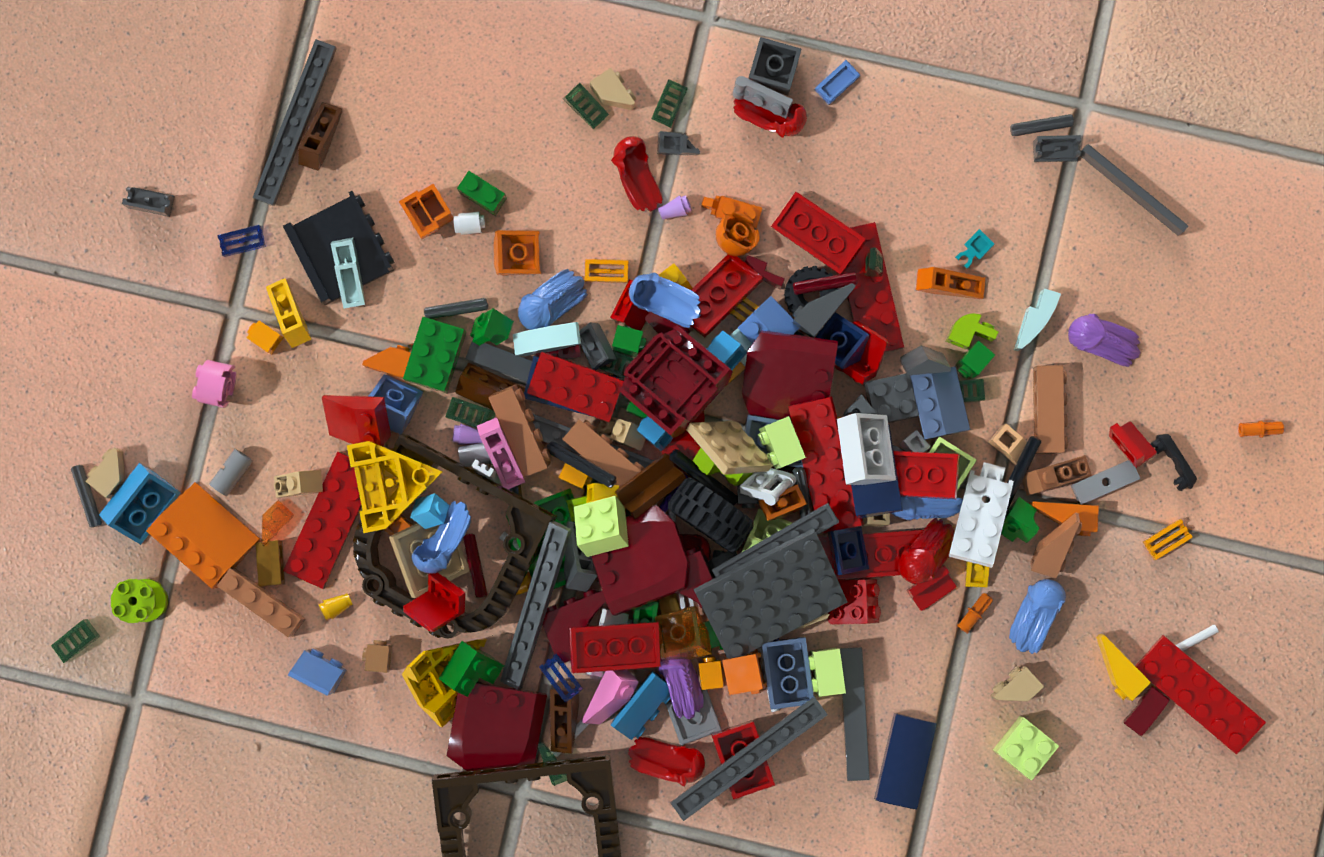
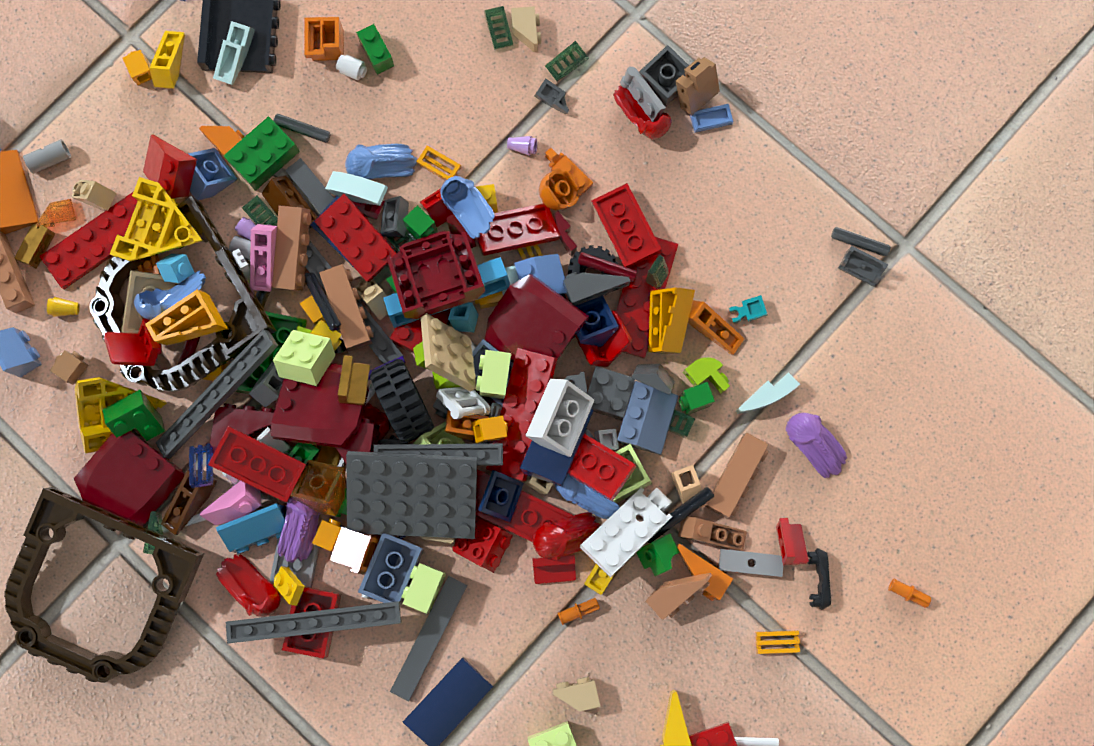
camera: 30 degrees right, 5 degrees down
(214, 383) = (75, 79): bright pink brick -> none
(473, 553) = (186, 320): none -> light orange wedge
(491, 327) = (319, 156): green brick -> none
(516, 252) = (375, 109): orange slope -> none
(635, 174) = (506, 100): red hair -> none
(649, 486) = (367, 347): reddish brown panel -> none
(660, 523) = (353, 382): none -> pearl gold panel
(705, 739) = (288, 585): none -> yellow plate
(707, 480) = (417, 371): black axle -> none
(720, 407) = (464, 317): none -> medium azure brick
(807, 496) = (490, 429): none -> light orange brick
(812, 59) = (698, 86): none -> medium nougat piece
(908, 300) = (669, 319): none -> light orange wedge
(1037, 615) = (629, 642): medium blue hair -> none
(1133, 190) = (908, 334): dark grey tile -> none

